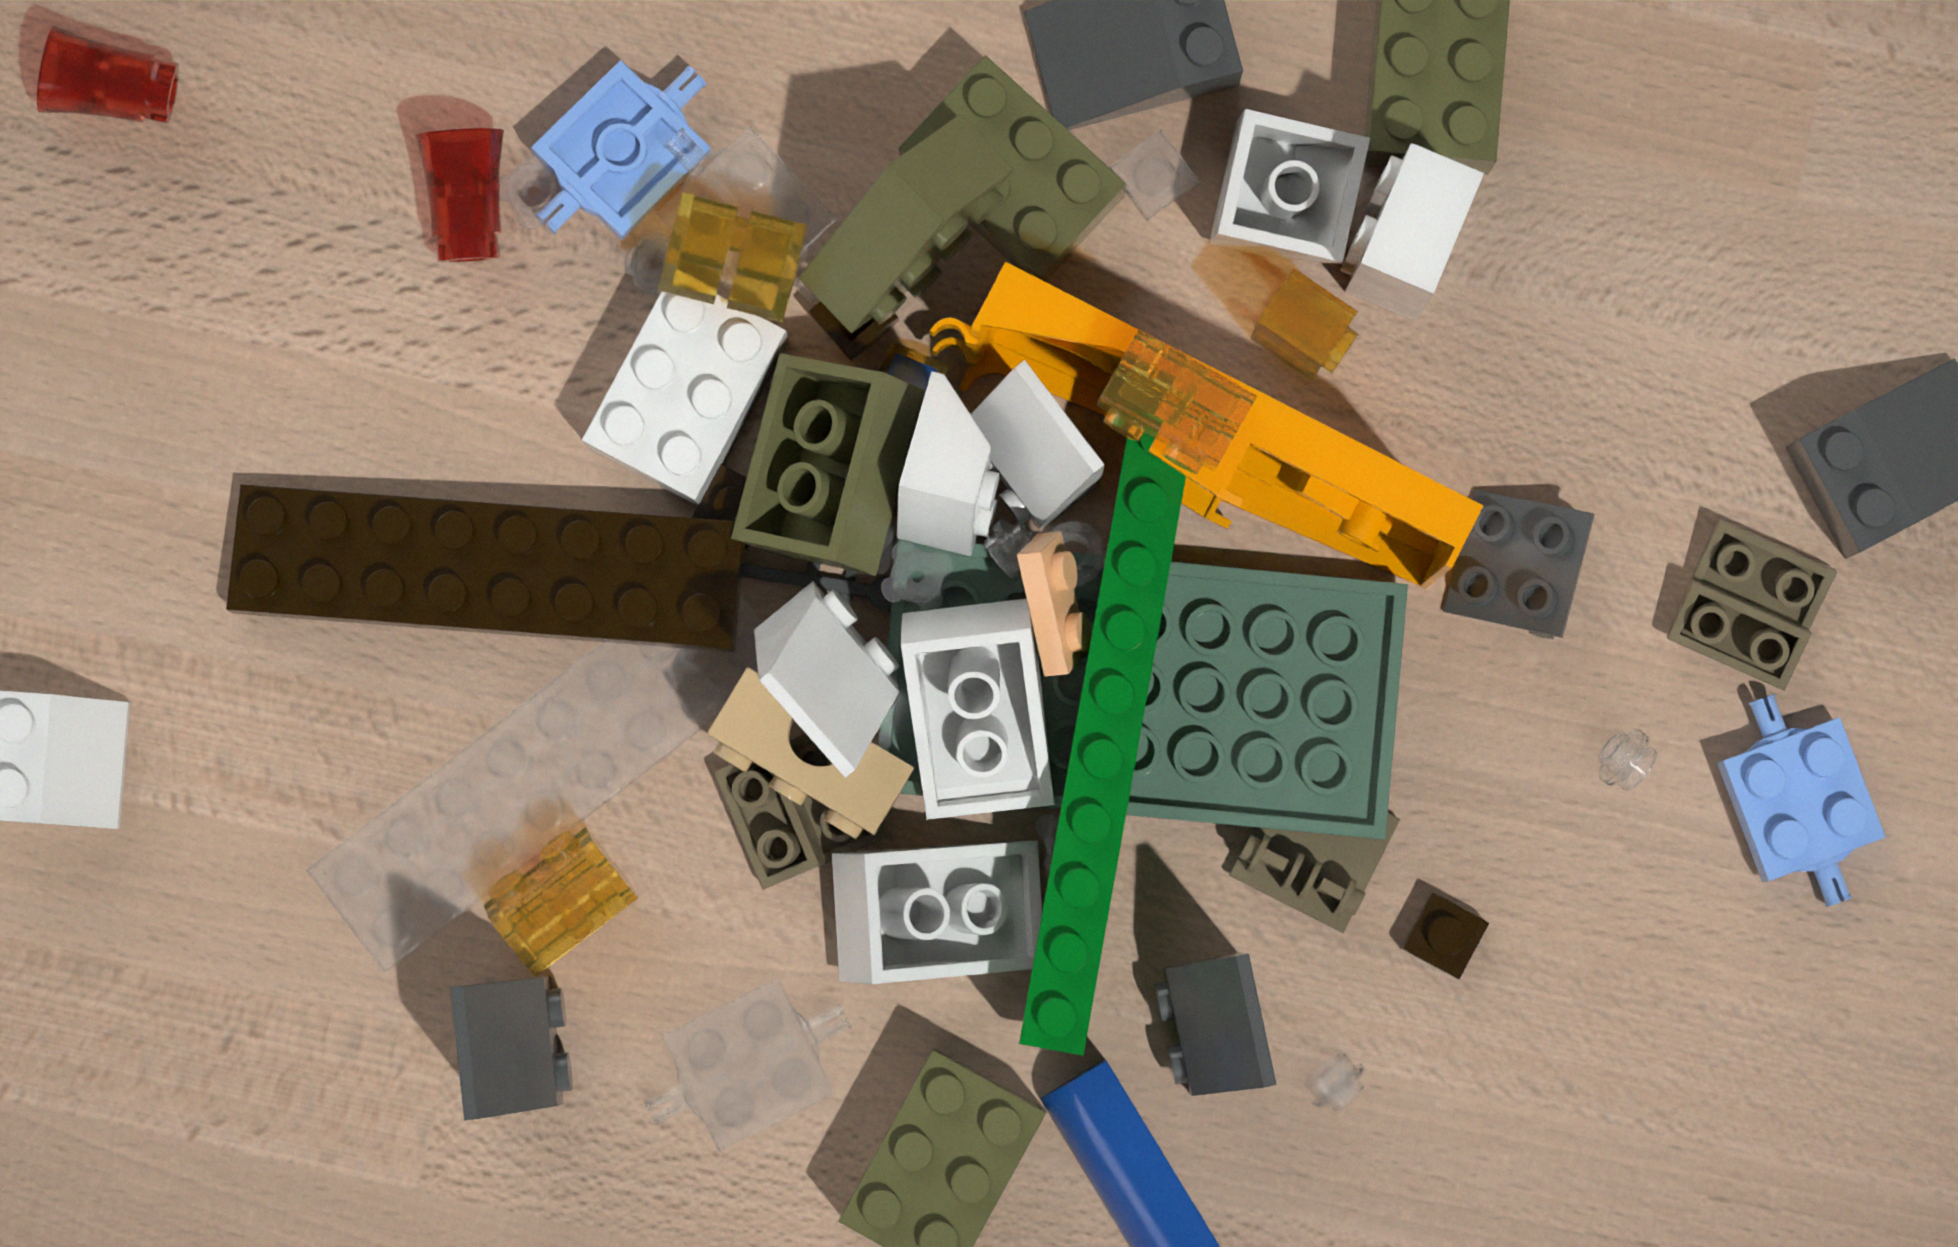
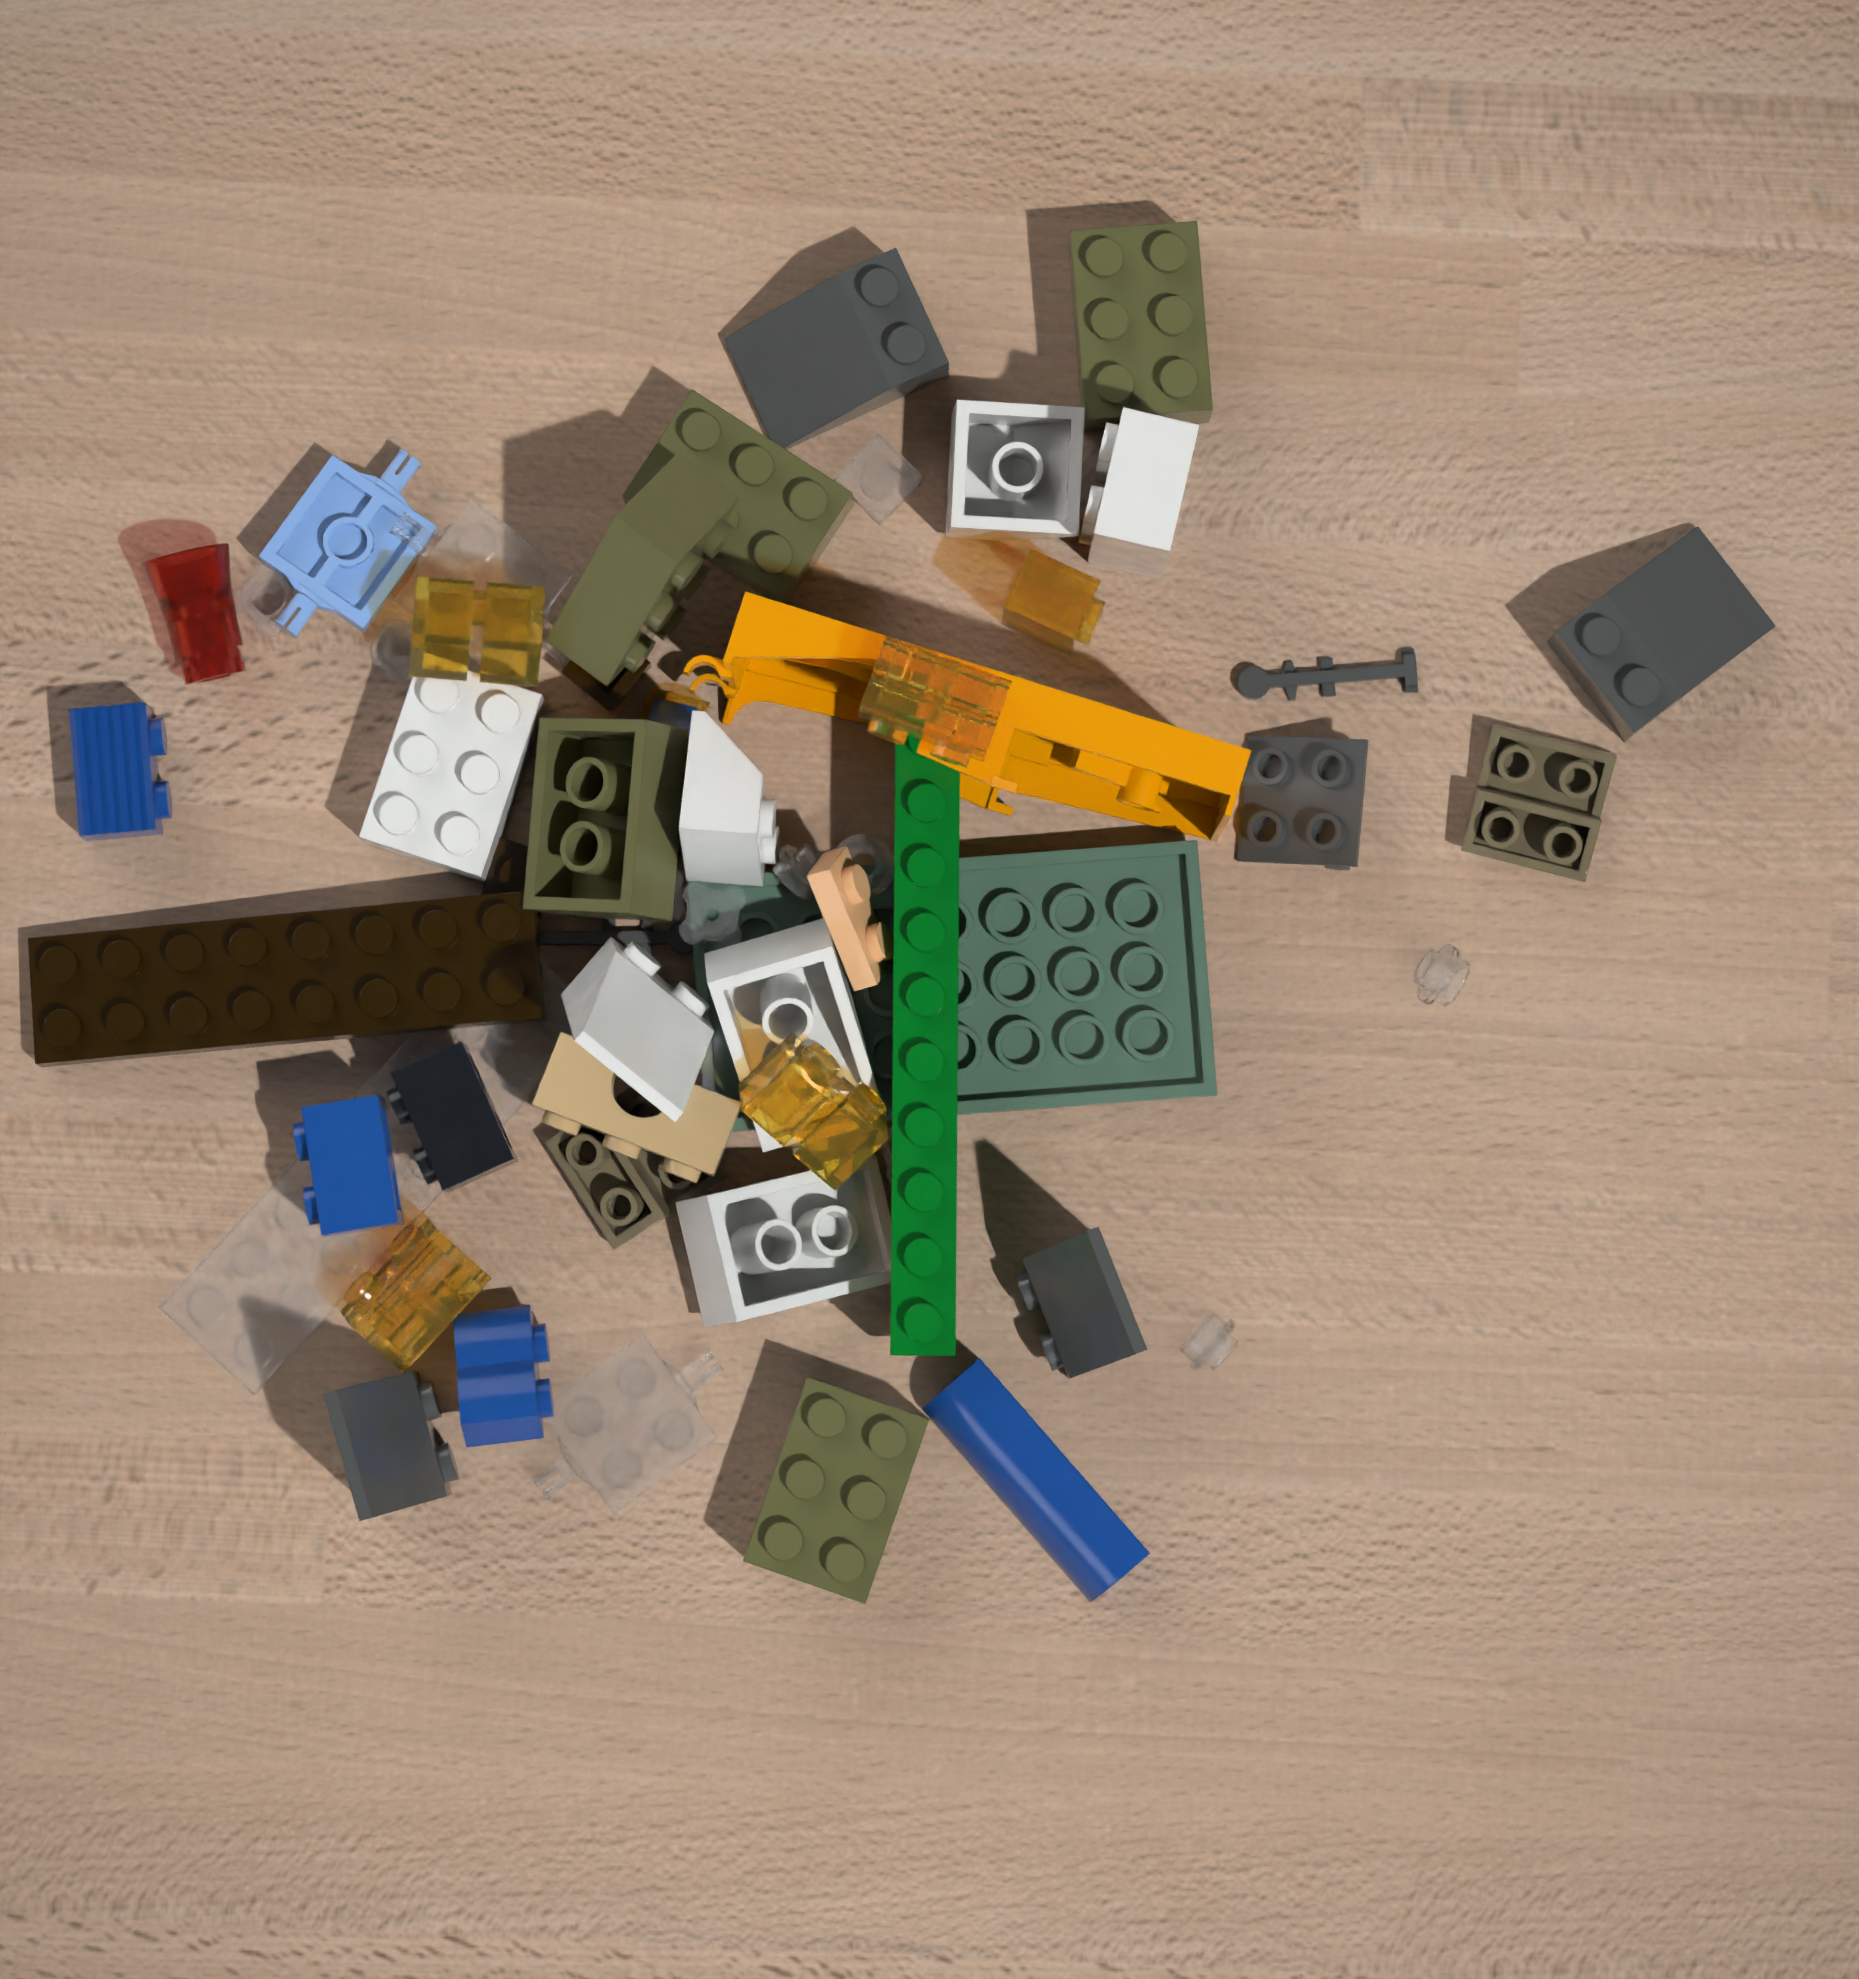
camera: 15 degrees left, 0 degrees up
(358, 335) = (118, 771): none -> blue brick
(517, 763) = (349, 1166): none -> blue brick
(625, 733) = (452, 1118): none -> black brick
(630, 996) = (500, 1376): none -> blue brick
(974, 772) = (803, 1098): none -> clear yellow piece
(1035, 449) = (807, 770): white slope -> none
(1312, 870) = (1151, 1139): dark tan hinge -> none
(1444, 935) = (1292, 1180): dark brown plate -> none
(1491, 438) = (1255, 682): none -> dark grey piece
(1801, 800) = (1619, 986): light blue plate -> none

